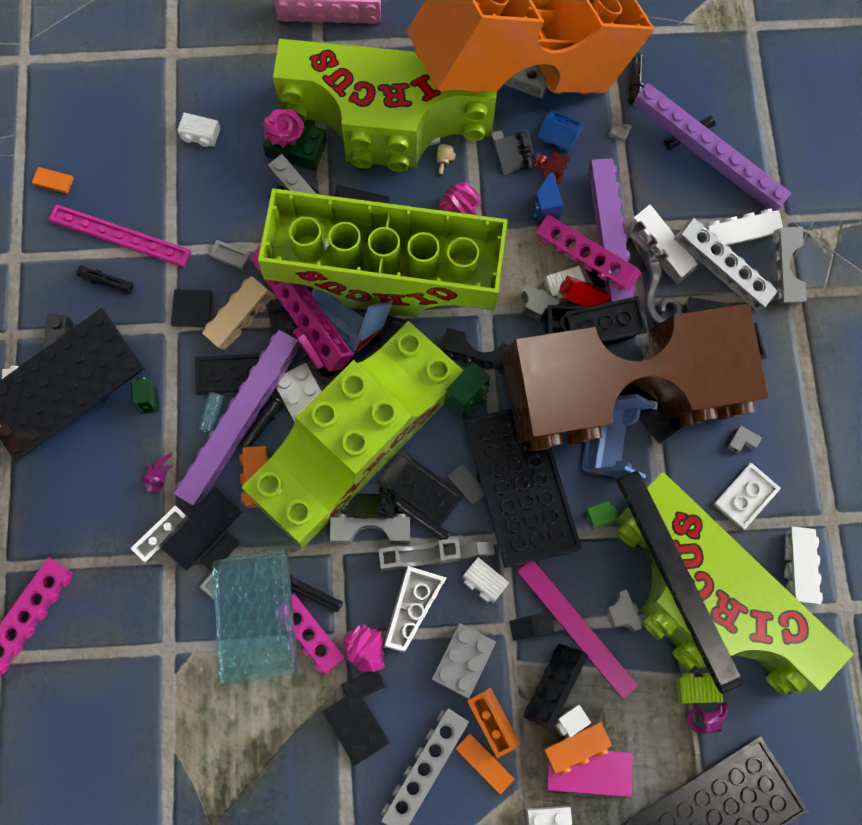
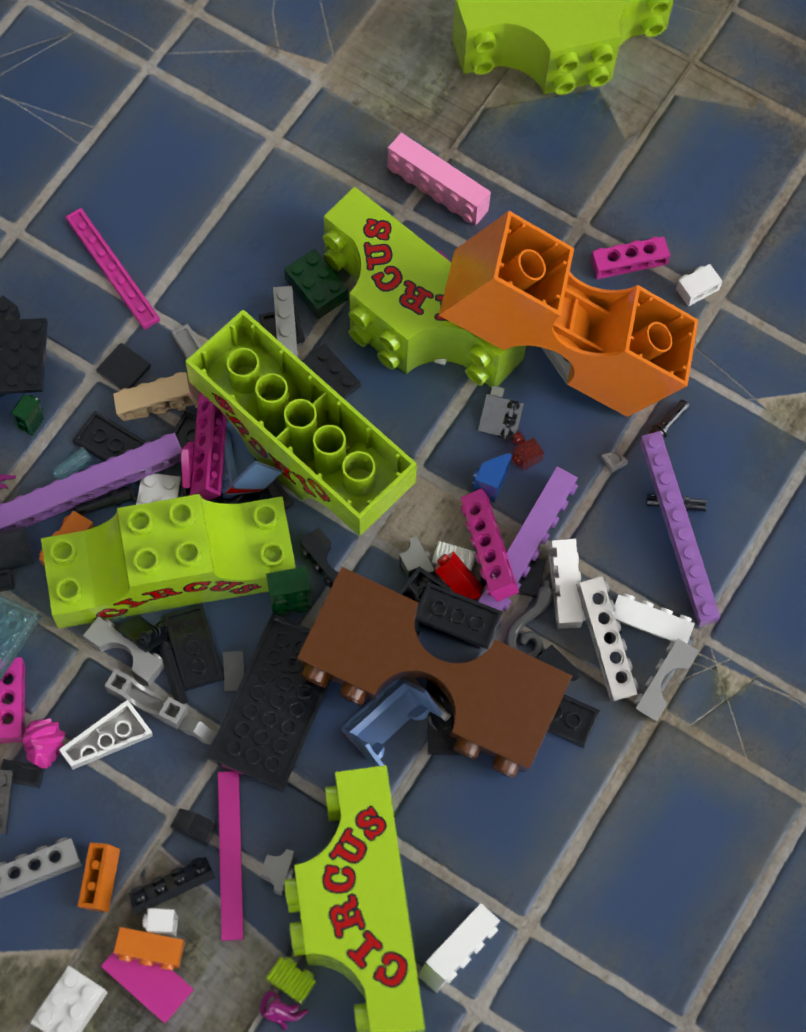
camera: 35 degrees right, 5 degrees down
(52, 180) = (93, 185): orange tile -> none
(97, 276) = (67, 290): black pin -> none
(199, 129) = (244, 220): white brick -> none
(283, 127) = (308, 264): dark pink hair -> none
(315, 594) = (38, 669): black axle -> none
(444, 155) = (438, 378): tan piece -> none
(460, 199) = (415, 427): dark pink hair -> none
(464, 661) = (114, 811): light grey brick -> none
(485, 580) = (185, 760): white brick -> none
(485, 763) = (67, 907): orange tile -> none
(560, 130) = (558, 423): blue slope -> none
(601, 515) = (323, 775): bright green brick -> none
(679, 583) = (322, 862): black beam -> none
(743, 437) = (505, 800): light grey piece -> none
(746, 496) = (467, 853): white tile -> none

